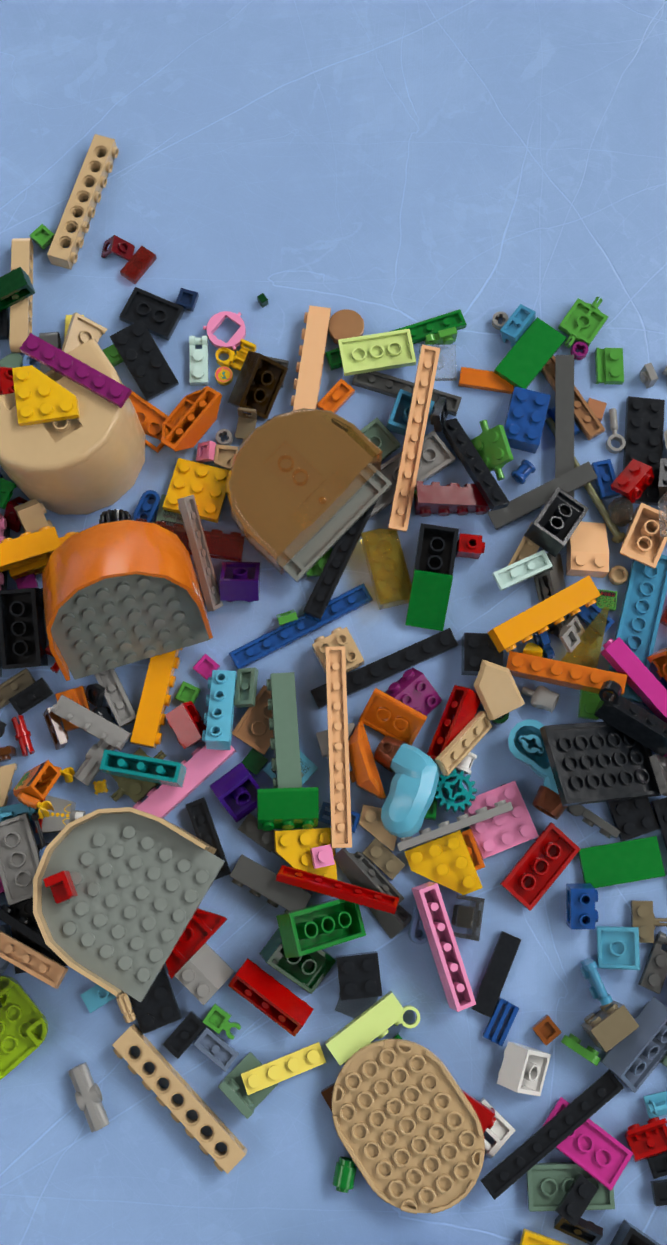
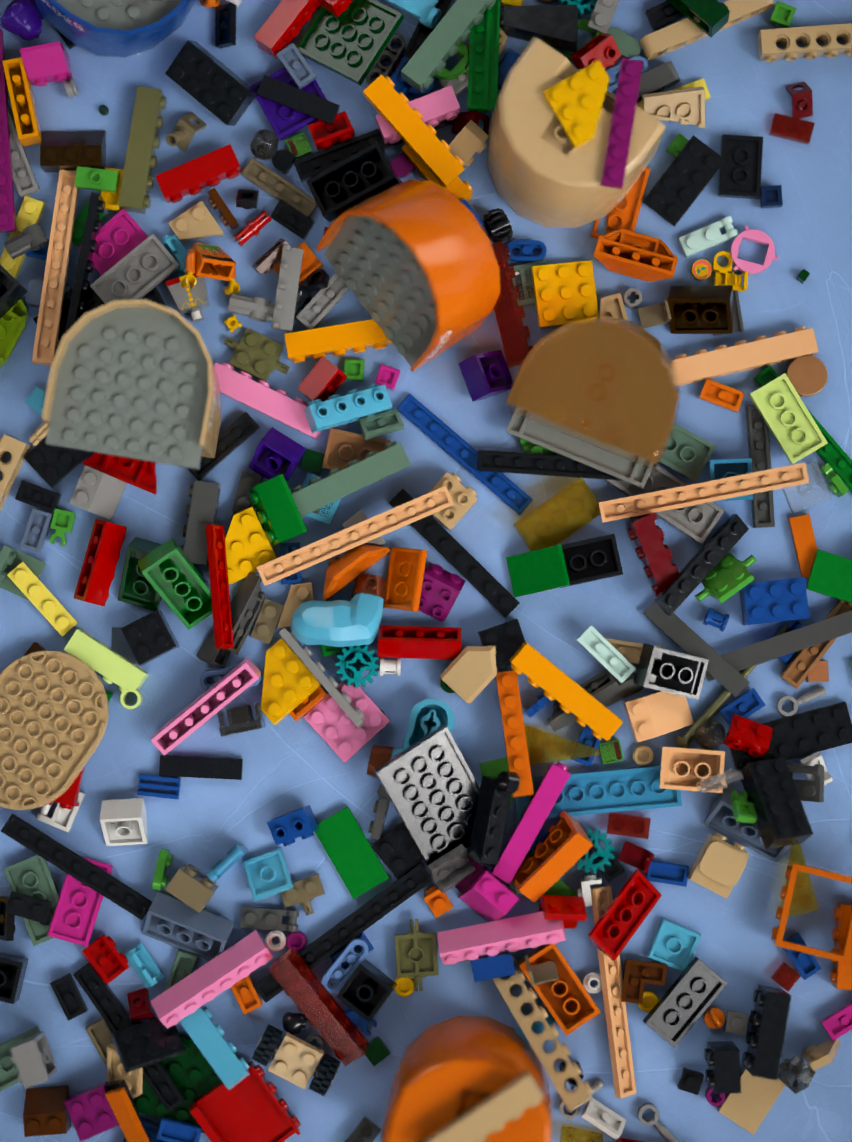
camera: 75 degrees right, 10 degrees up
(35, 816) = (153, 296): black hinge -> none
(61, 886) = (117, 329): red panel -> none
(143, 768) = (262, 357): teal brick -> none
(200, 552) = (496, 323): light grey plate -> none
(205, 451) = (609, 285): bright pink plate -> none
(287, 617) = (467, 436): bright green tile -> none
(322, 856) = (245, 561): bright pink plate -> none
(440, 414) = (742, 510): black plate -> none
(463, 743) = (405, 657): tan tile -> none
(470, 546) = (613, 593): red brick -> none
(533, 649) = (527, 694): yellow tile -> none
(540, 866) = (316, 774): red slope -> none
(542, 698) = (483, 720): light grey piece -> none
(546, 1030) = (167, 831): dark orange plate -> none
(571, 632) = (558, 725): light grey slope -> none

